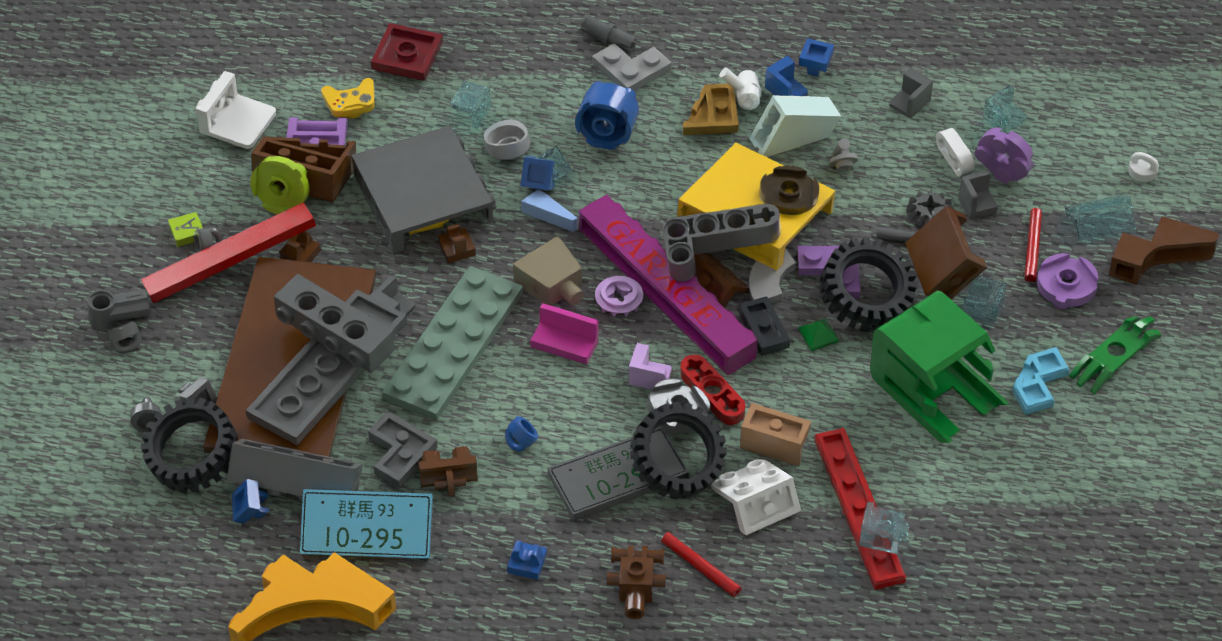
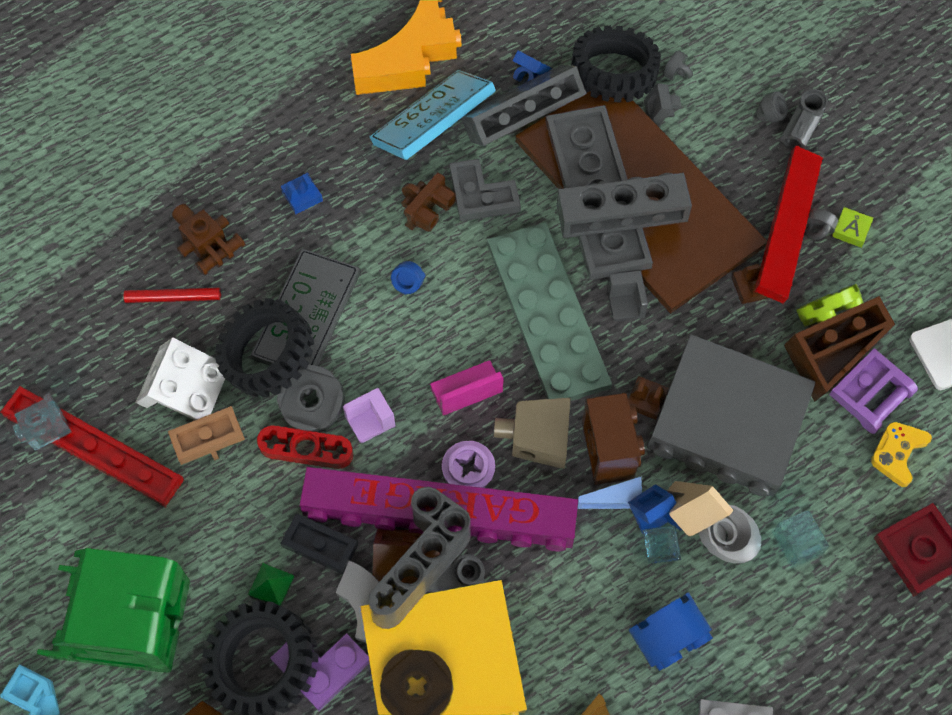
camera: 135 degrees right, 15 degrees up
(513, 144) = (697, 506): none -> tan slope
(517, 222) = (612, 438): none -> reddish brown brick

